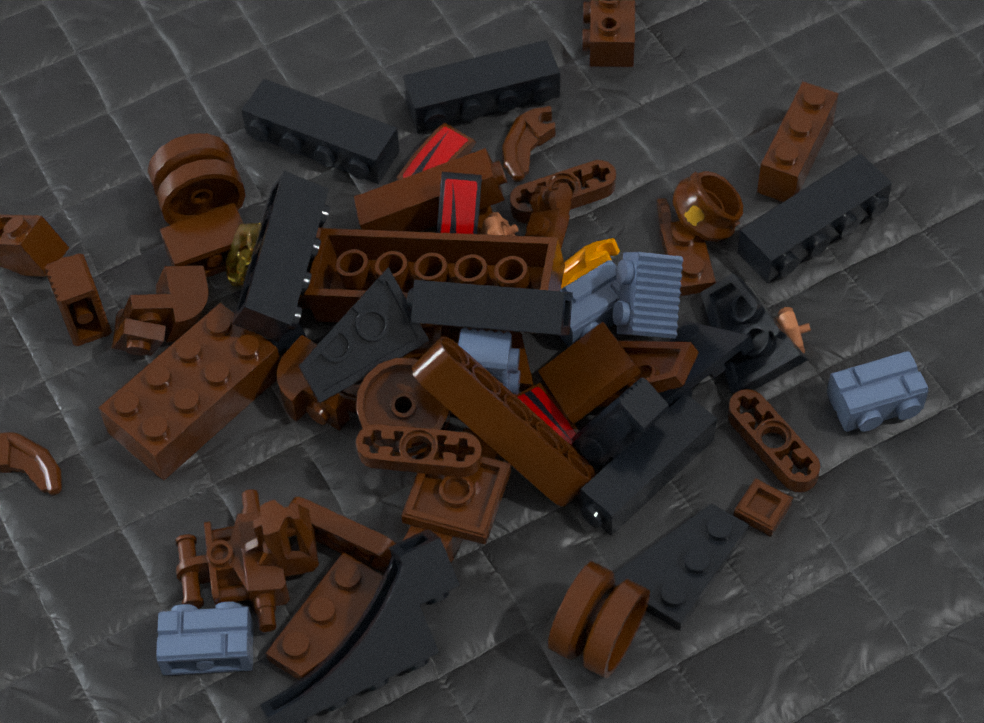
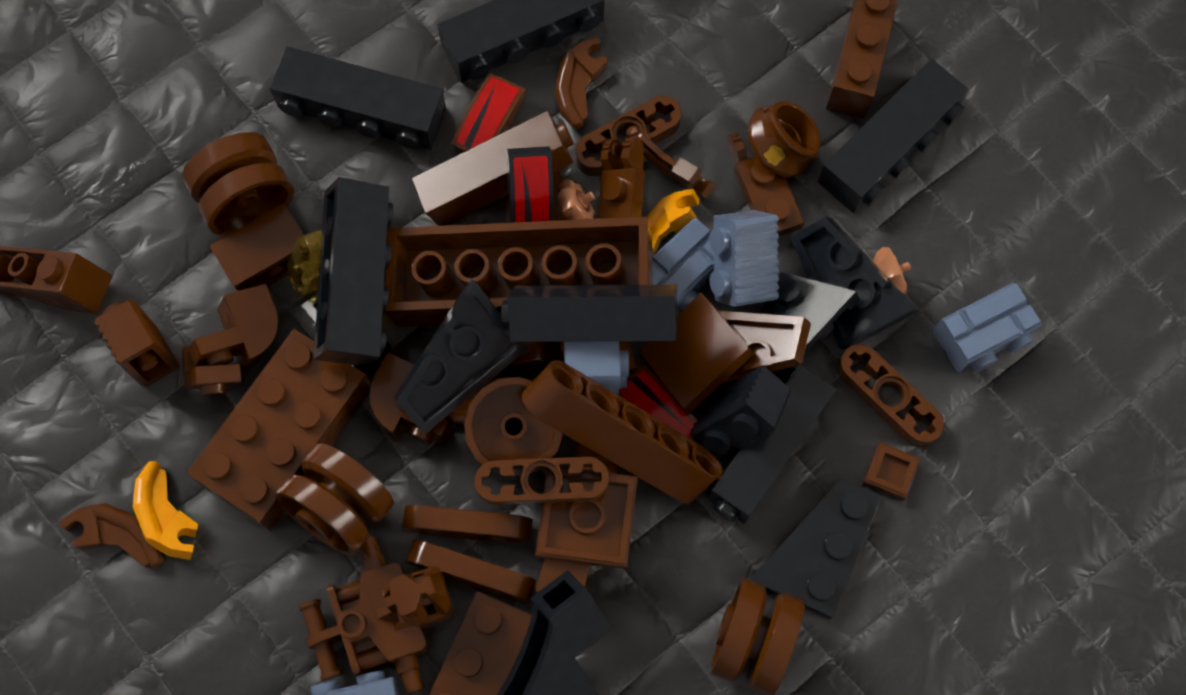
camera: 15 degrees left, 15 degrees up
(64, 451) = (158, 517): none -> light orange piece
(227, 446) = (335, 499): none -> reddish brown wheel
(346, 493) = (467, 524): none -> reddish brown beam
(603, 222) = (679, 171): none -> reddish brown piece

